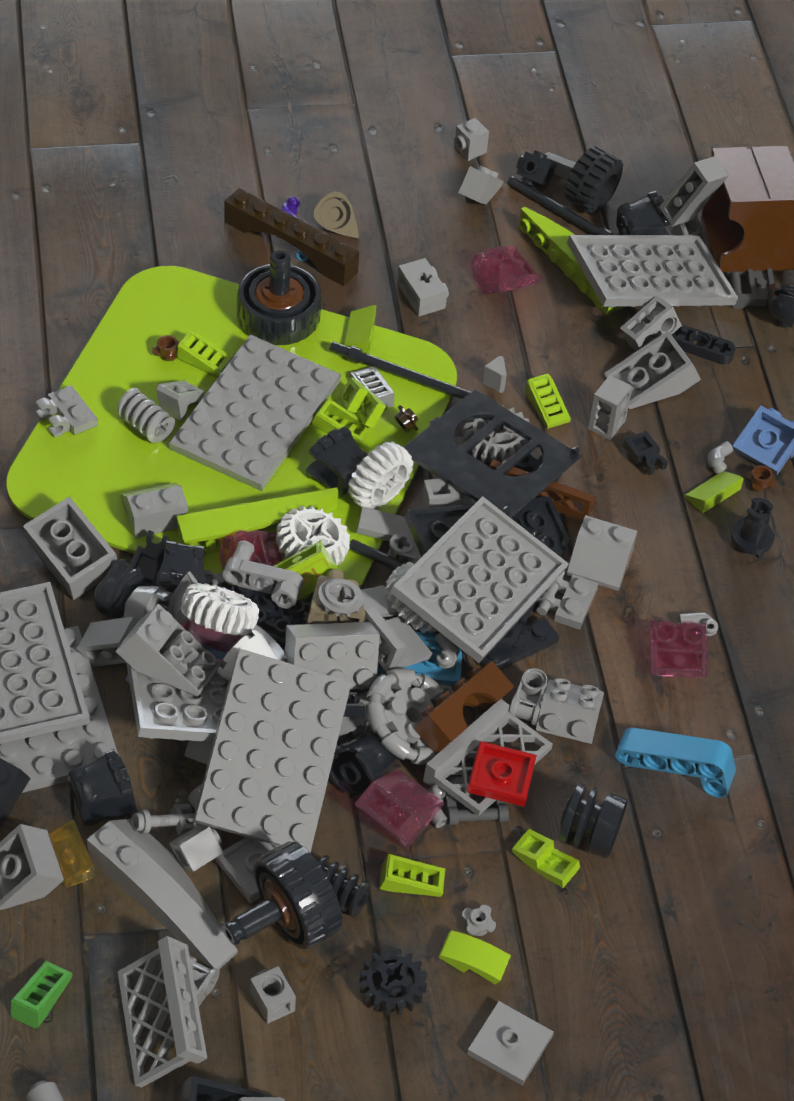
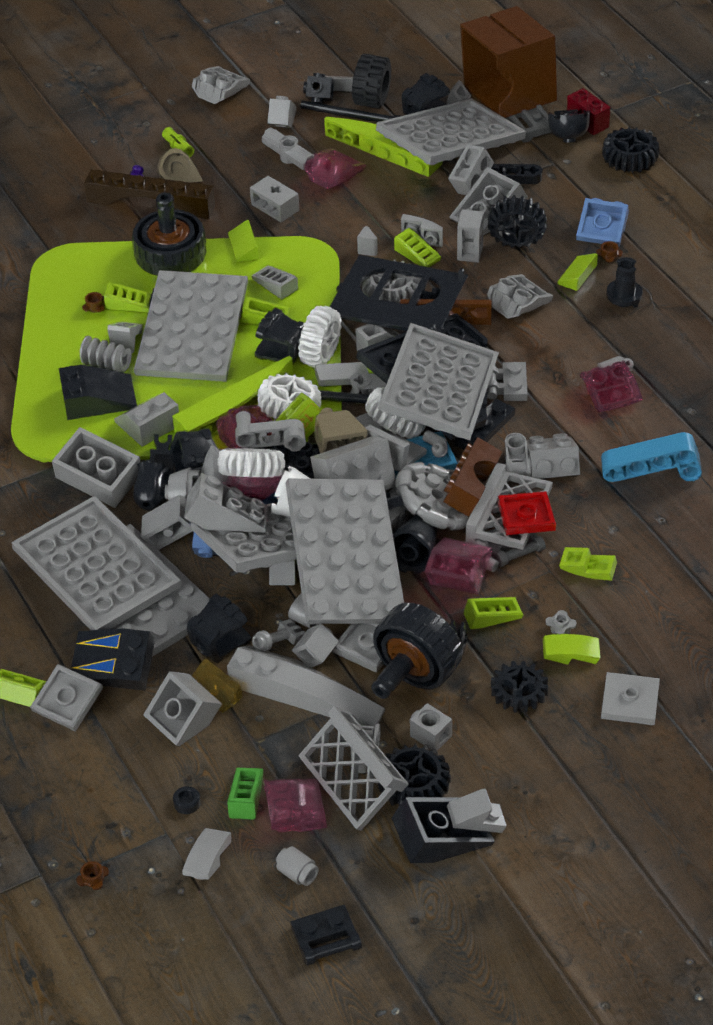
camera: 15 degrees left, 5 degrees down
(71, 411) = (39, 371): light grey plate -> none
(82, 1029) = (294, 804): none -> clear pink slope
(115, 455) = (95, 391): none -> black slope
(229, 1030) = (422, 769): none -> black gear
(351, 177) = (177, 141): none -> lime pin
(351, 594) = (351, 422): light grey gear -> none
(357, 355) = (249, 261): black bar -> none
(362, 402) = (274, 291): lime slope -> none
(406, 419) = (315, 293): dark brown plate -> none
(428, 126) = (218, 84): none -> light grey slope
(465, 229) = (287, 147): none -> light grey piece
(471, 139) = (256, 82): light grey brick -> none
(569, 385) = (427, 230): none -> light grey slope
(592, 820) = (613, 521): black wheel -> none
(602, 552) = (517, 338): light grey slope -> none
(629, 498) = (517, 296): none -> light grey slope
(645, 449) = (511, 259): black plate -> none
(668, 409) = (517, 222): none -> black gear
(693, 191) = (461, 58): light grey brick -> none
(717, 455) = (568, 247): light grey arm -> none

